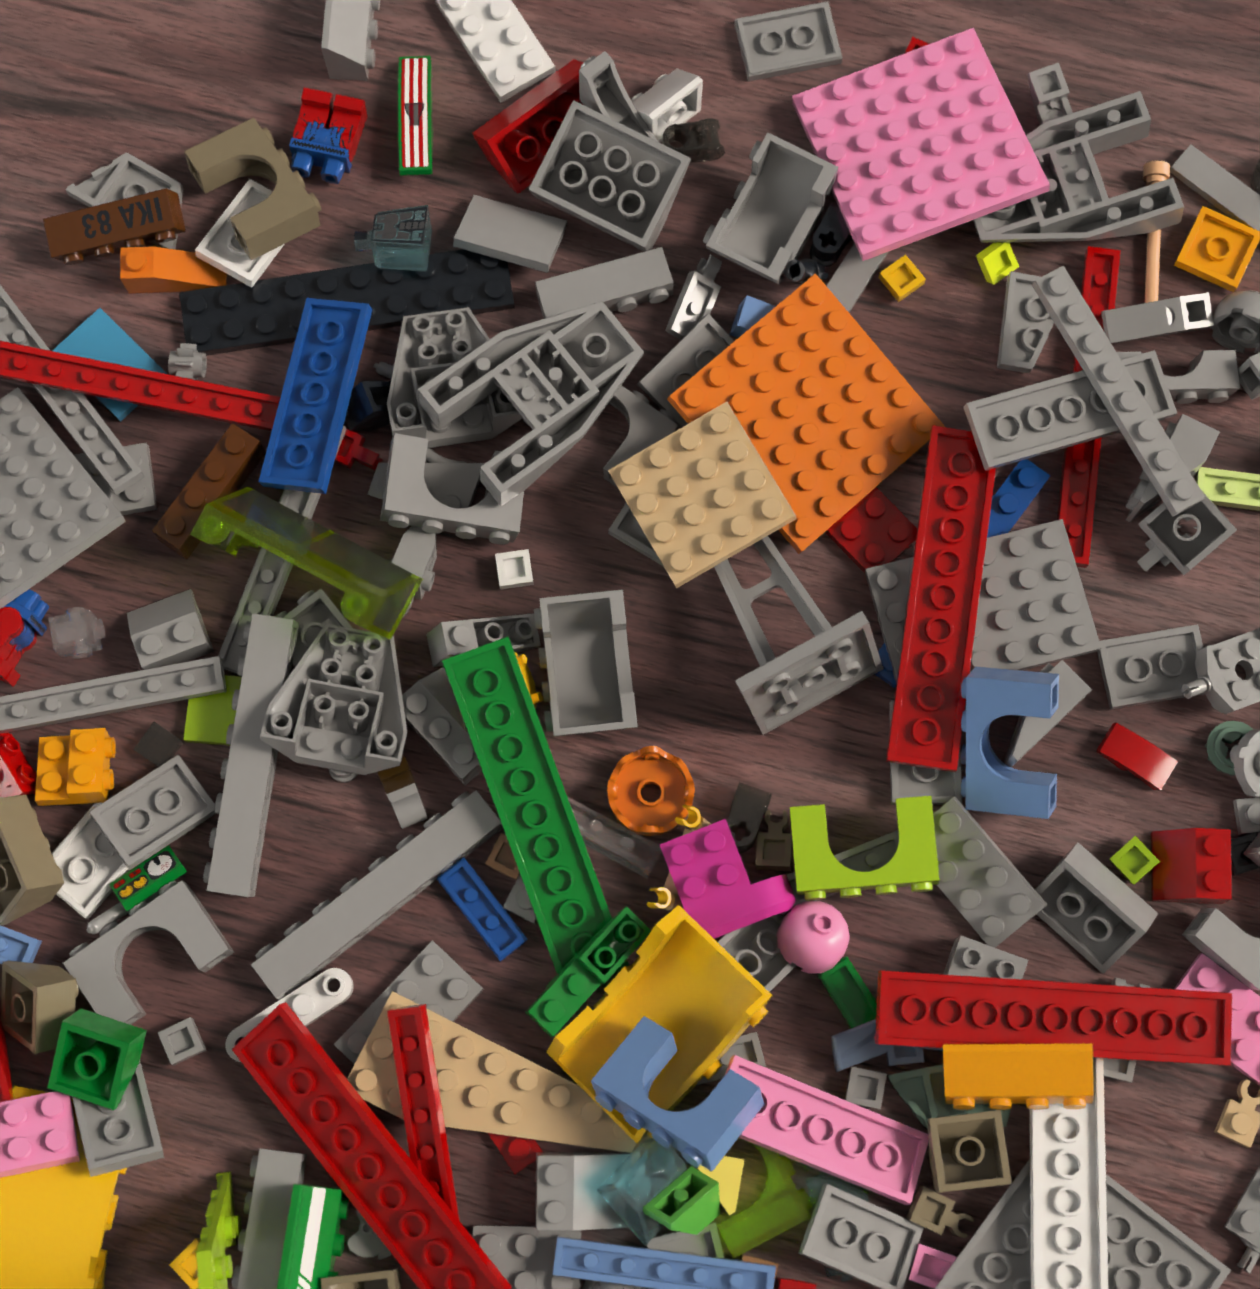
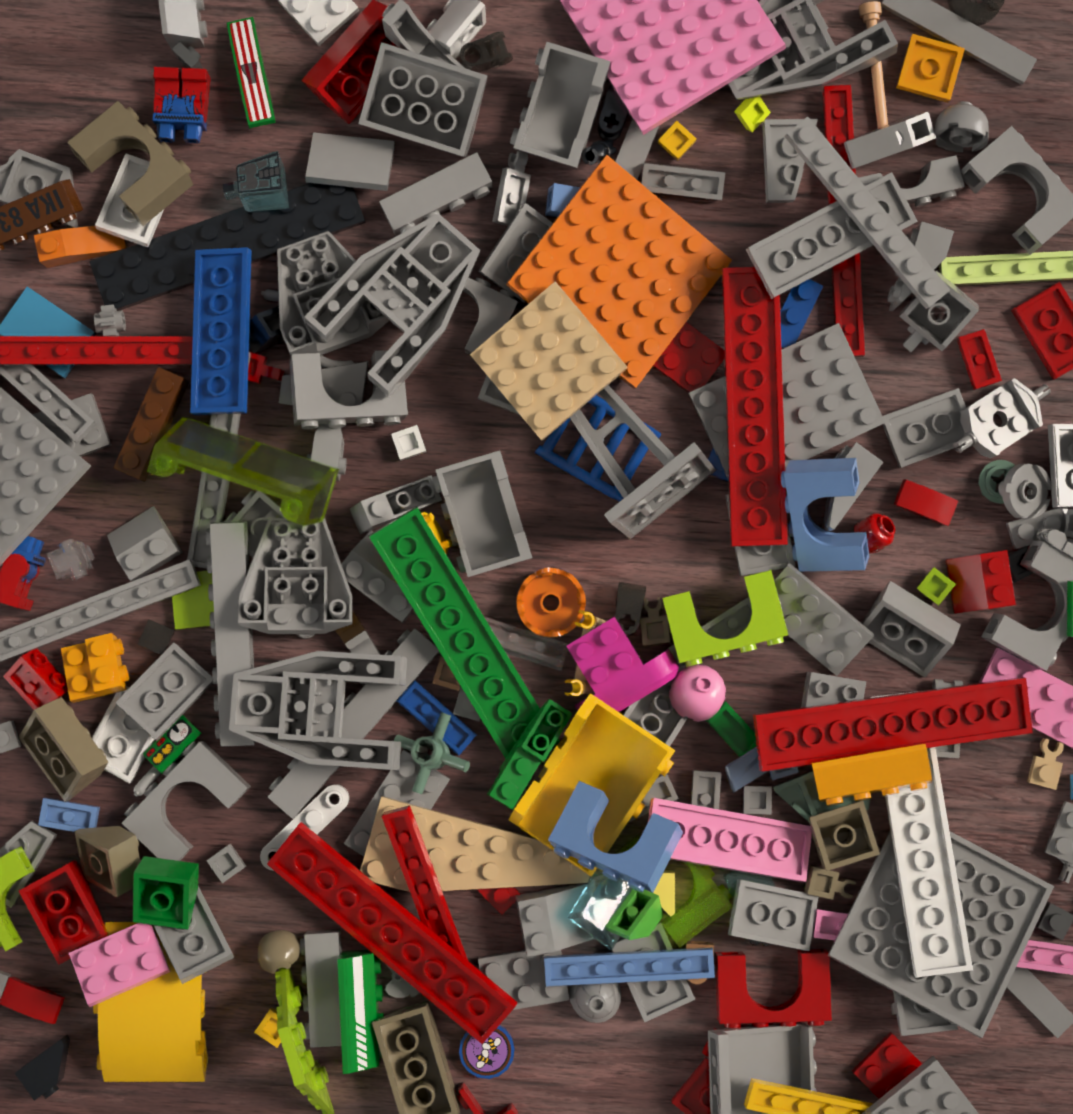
camera: 15 degrees left, 10 degrees up
(222, 1163) = (278, 950): none -> dark tan hair
(315, 855) = (301, 707): none -> light grey wedge
(344, 83) = (187, 56): none -> dark grey plate
(475, 954) = (440, 753): none -> sand green bar
(705, 631) = (593, 478): none -> blue bar
(803, 1059) = (706, 788): none -> light grey plate
(902, 325) = (683, 181): none -> light grey plate
(1073, 778) = (879, 531): none -> red head
(1228, 596) = (979, 359): none -> red plate

